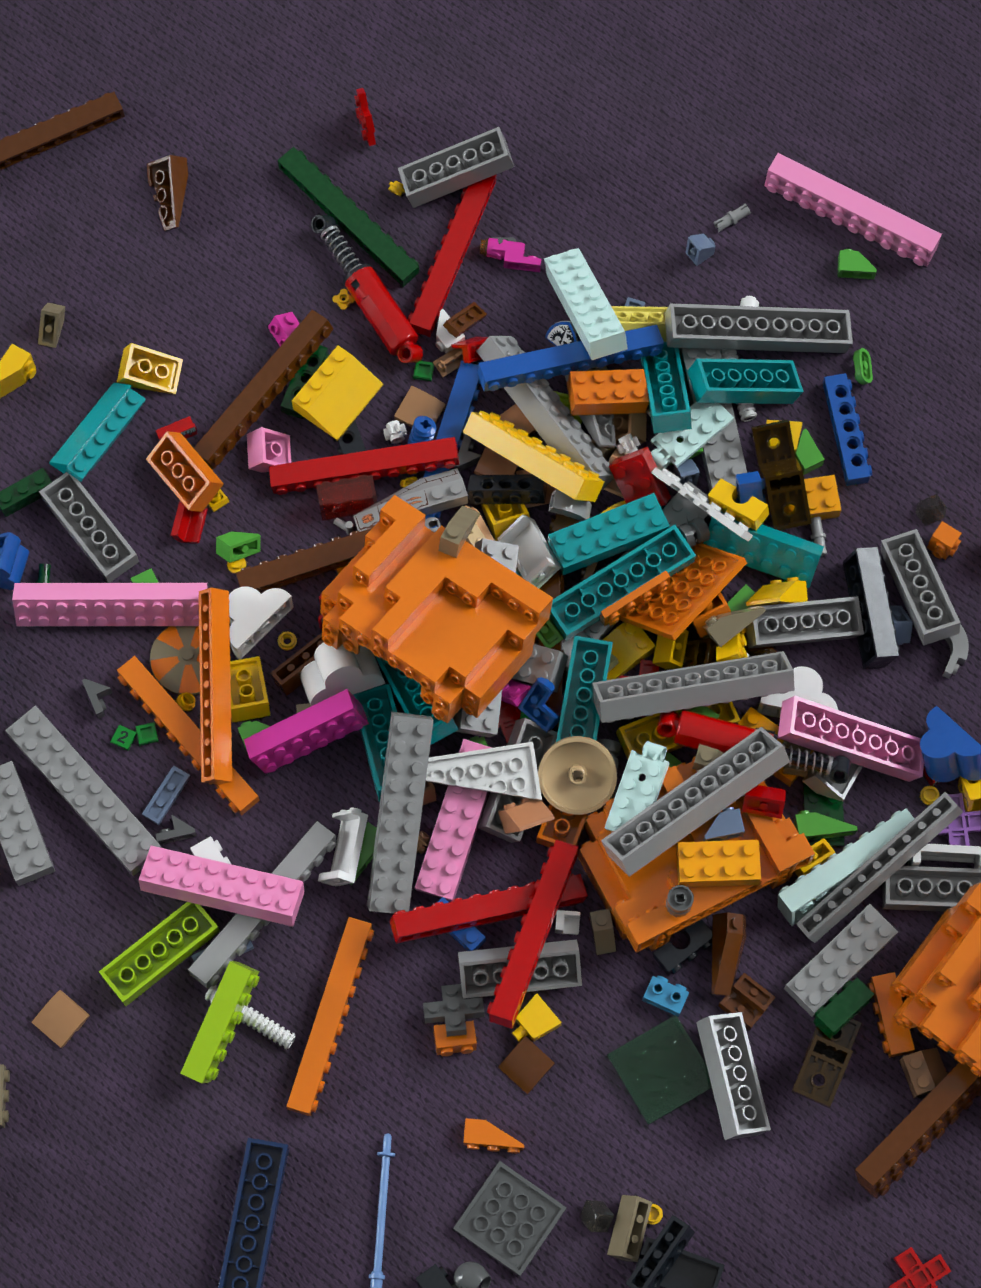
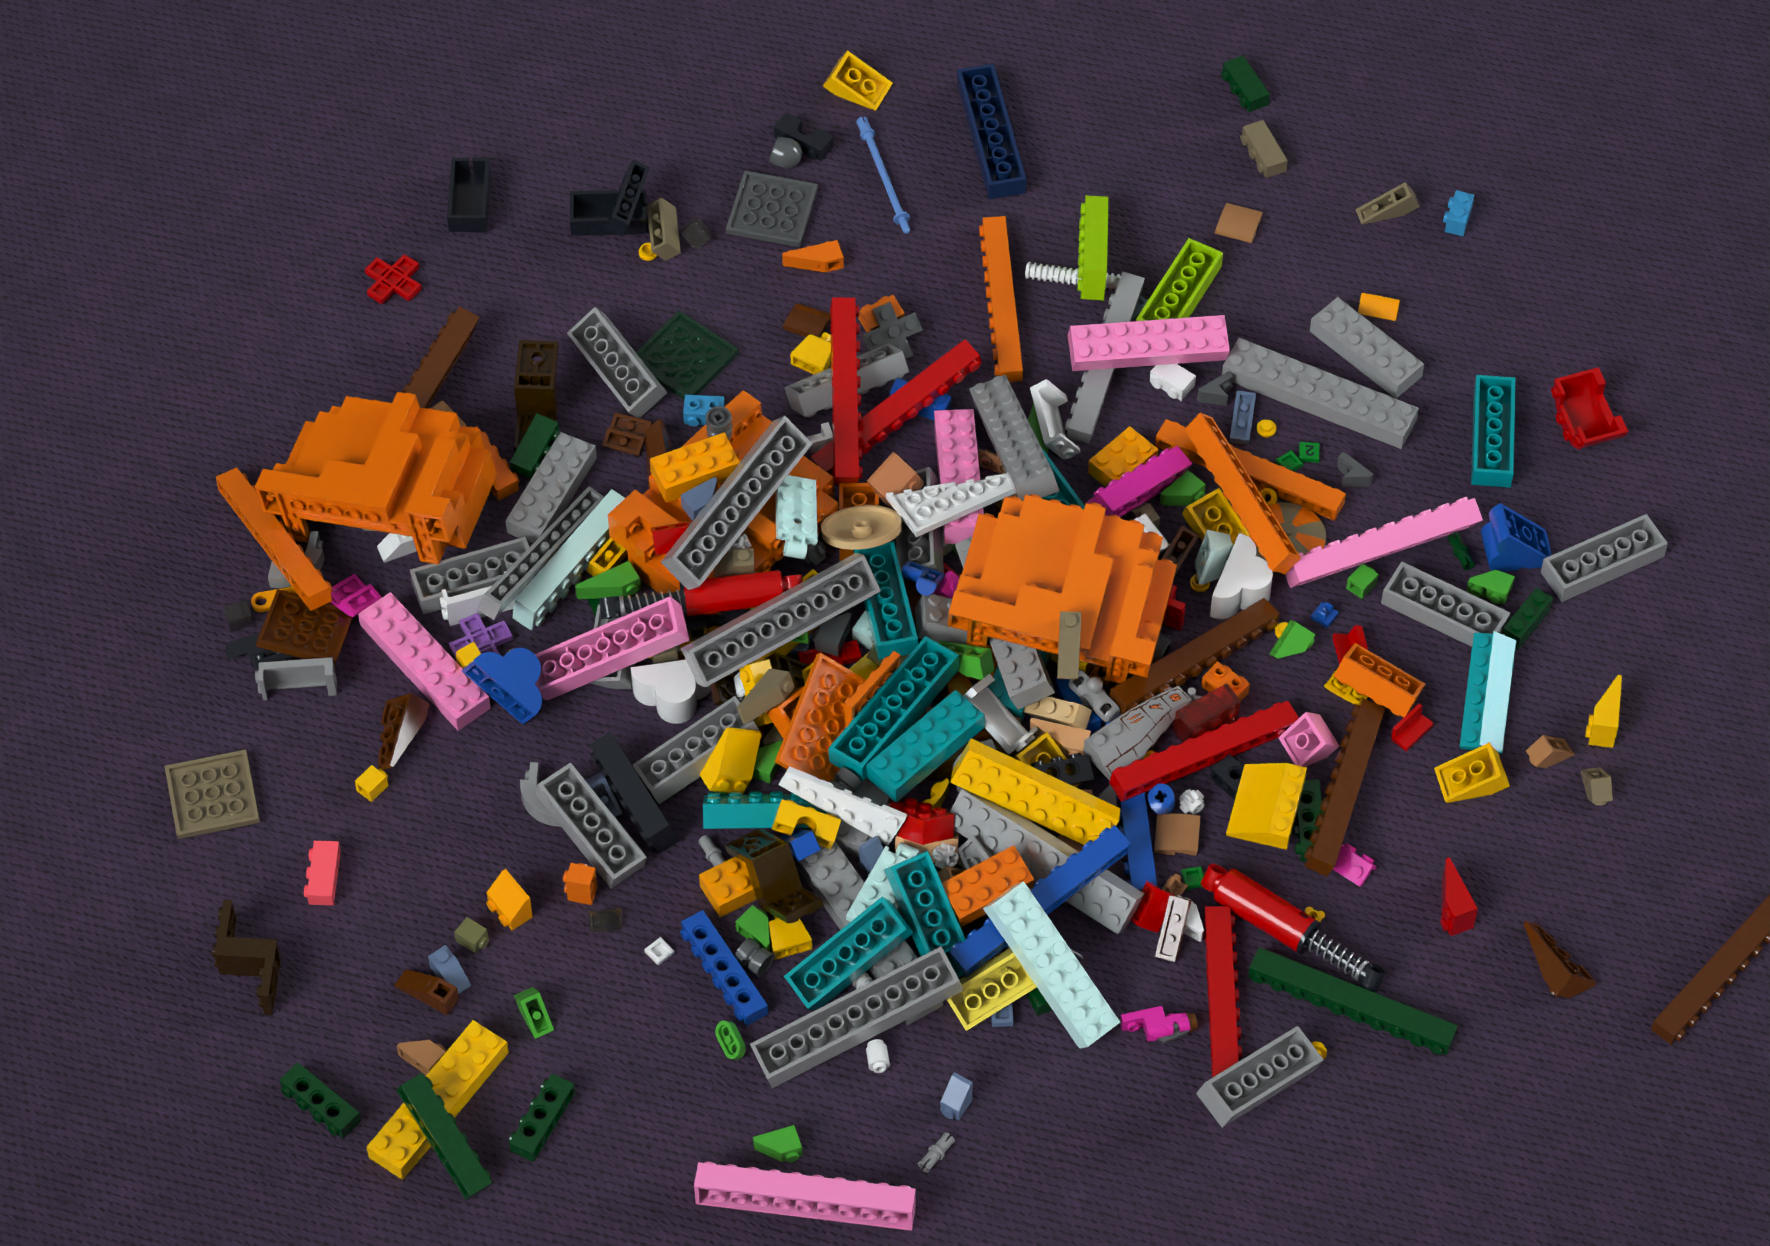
camera: 160 degrees right, 15 degrees down
(35, 537) = (1492, 585): none -> bright green slope
(73, 365) = (1548, 751): none -> medium nougat slope
(150, 776) = (1266, 428): none -> yellow plate
(194, 568) = (1324, 614): none -> blue tile
(226, 259) = (1457, 904): none -> red slope
(269, 644) = (1212, 556): none -> light aqua slope
(298, 786) = (1121, 456): none -> light orange brick
(312, 527) = (1222, 674): none -> orange brick
(365, 117) = (1391, 1102): red plate -> none
(818, 428) = (756, 959): none -> dark grey wheel
(893, 469) = (659, 951): none -> white tile

